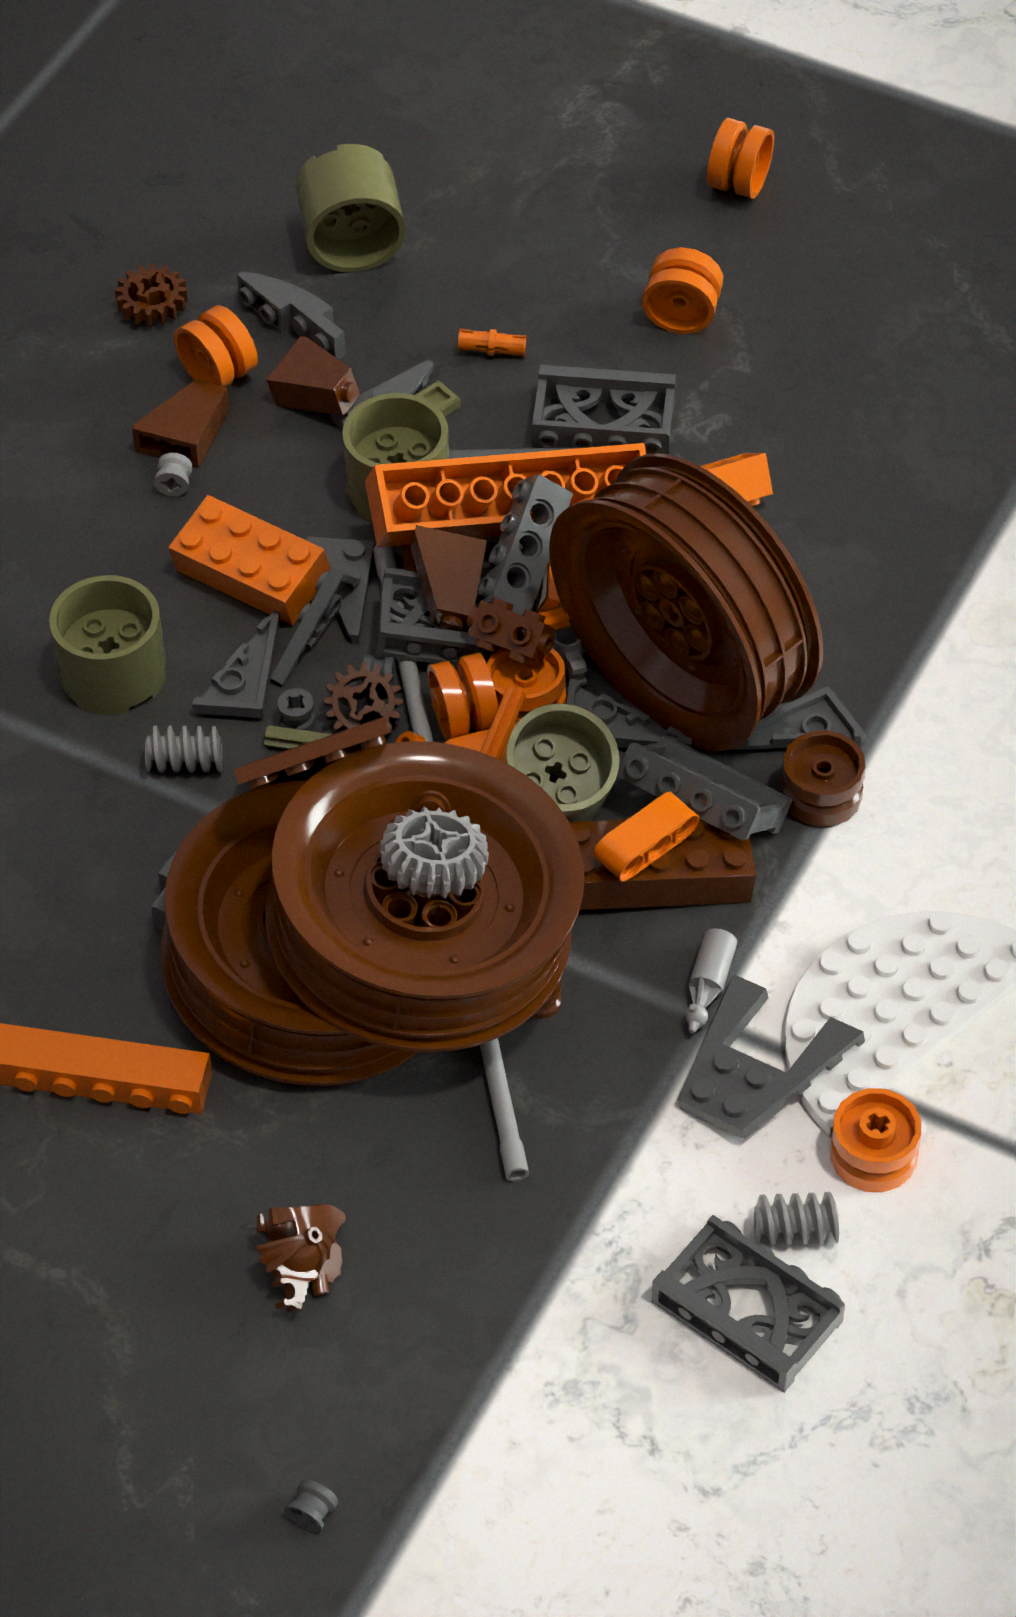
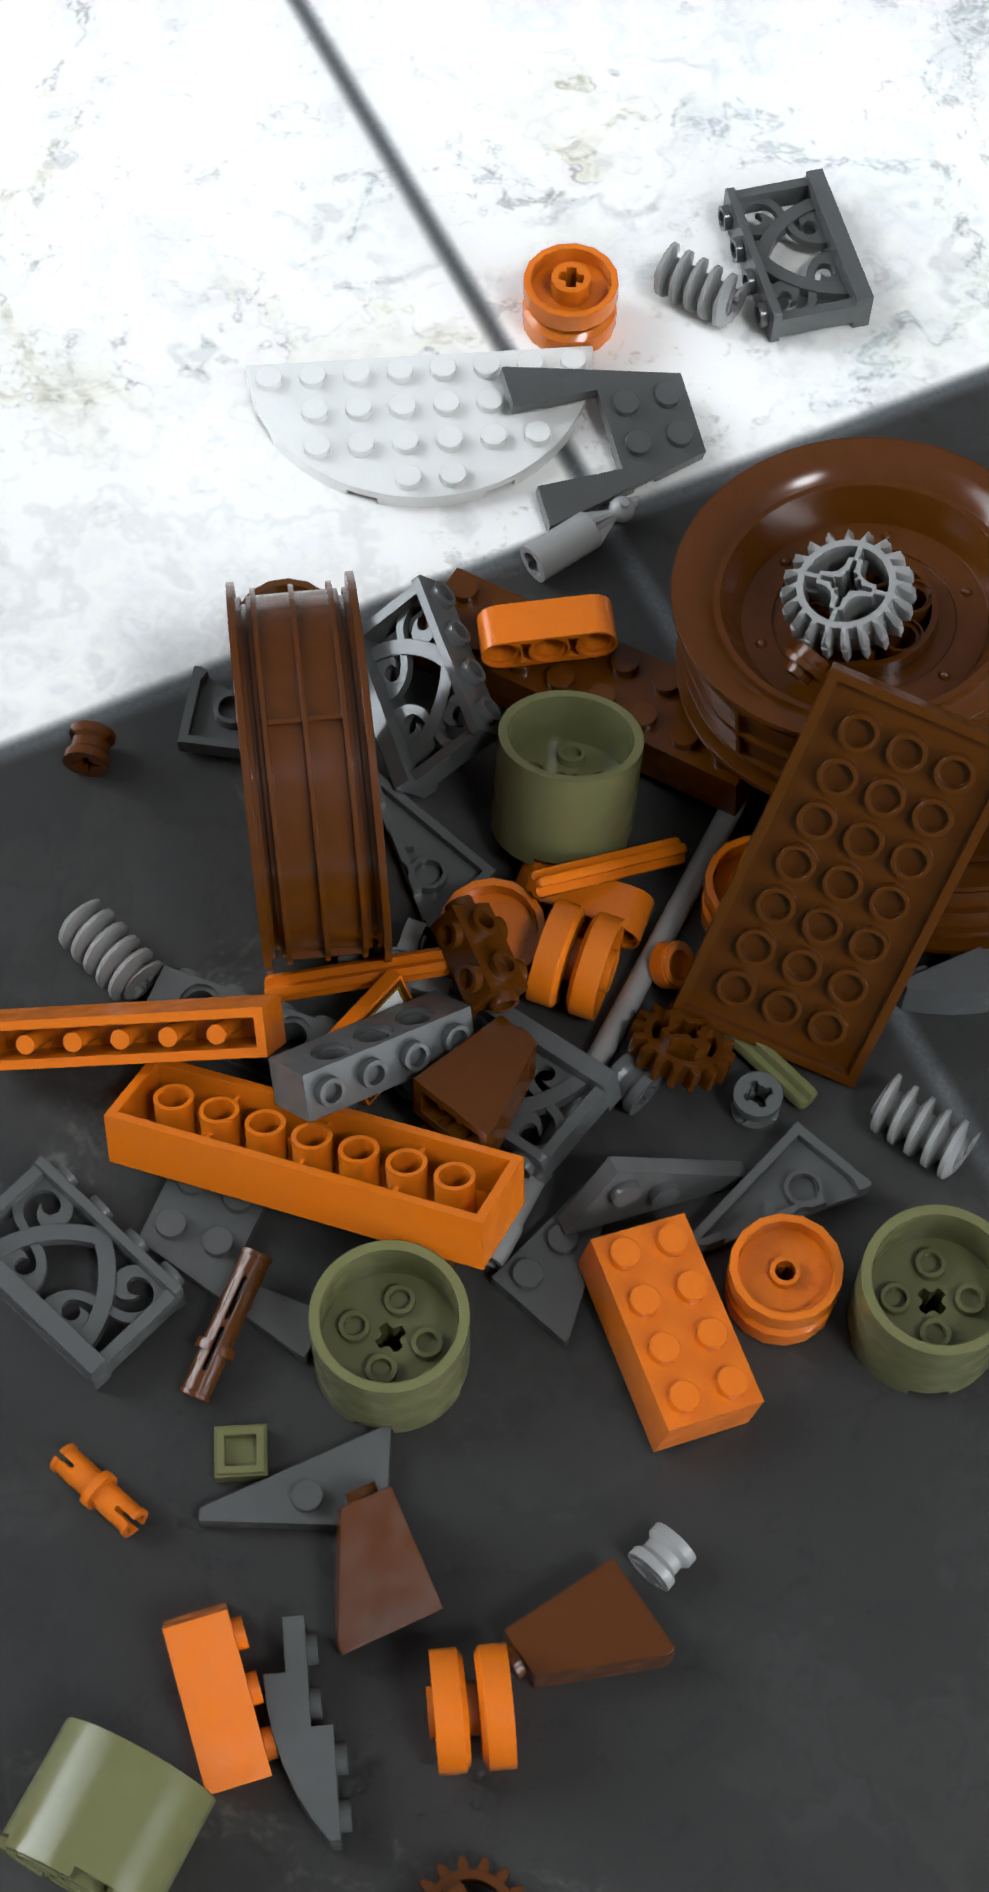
camera: 145 degrees left, 10 degrees up
(204, 619) = (783, 1279): none -> orange wheel
(361, 297) = (219, 1698): none -> orange wedge
(488, 414) = (201, 1382): none -> reddish brown pin
(876, 652) = (89, 748): none -> reddish brown wheel

